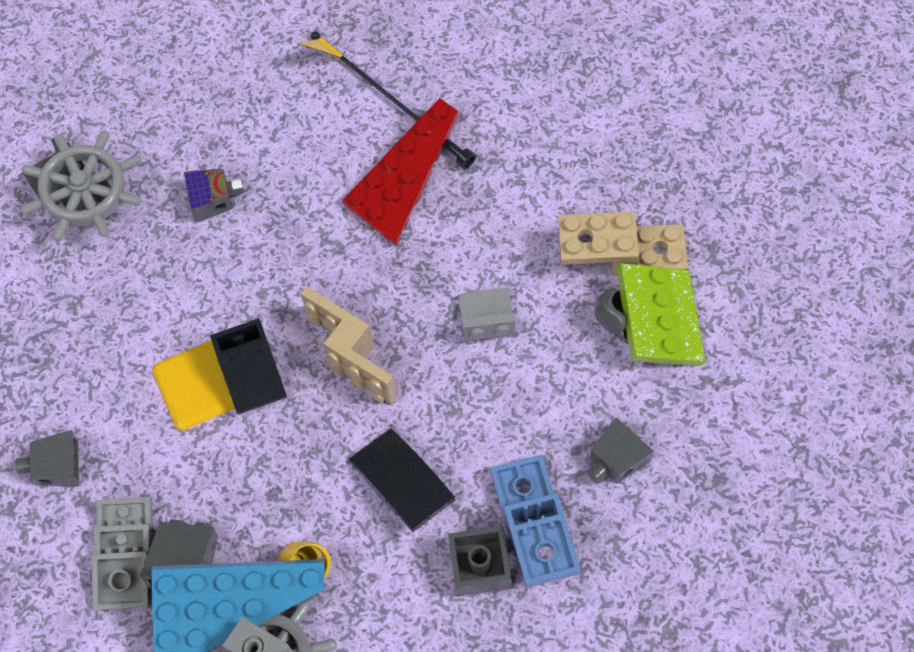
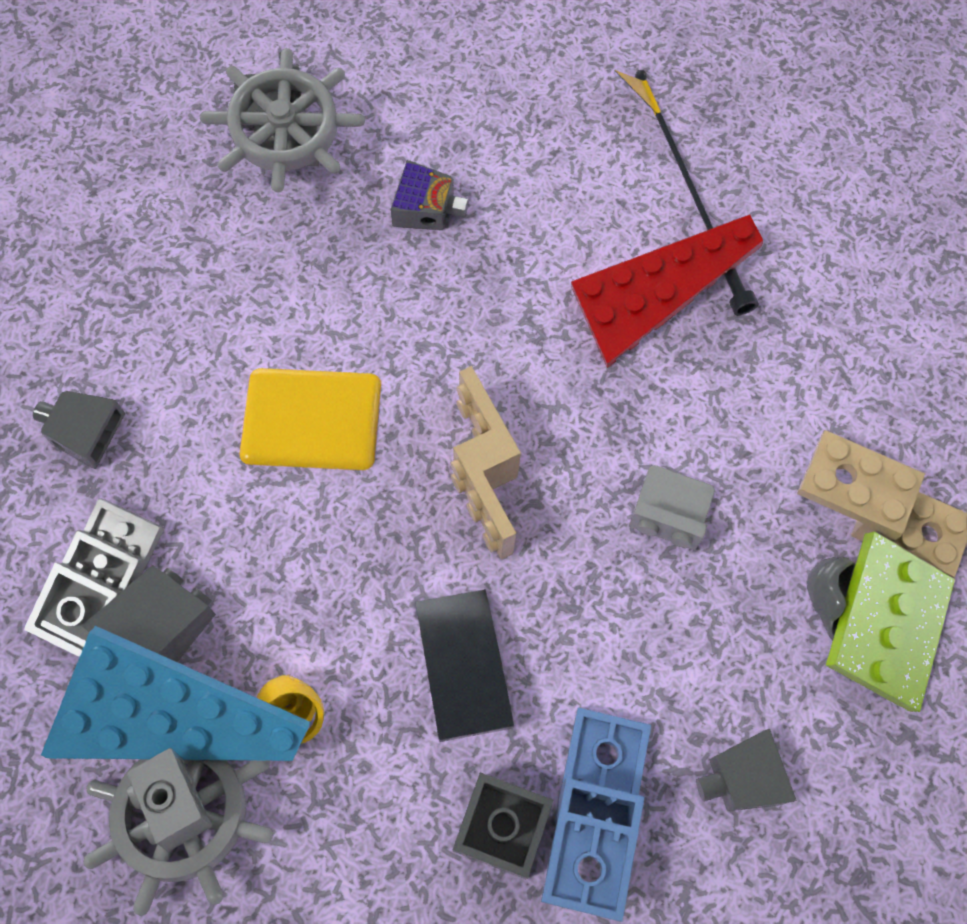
camera: 20 degrees right, 5 degrees up
(248, 366) = (356, 427): black slope -> none

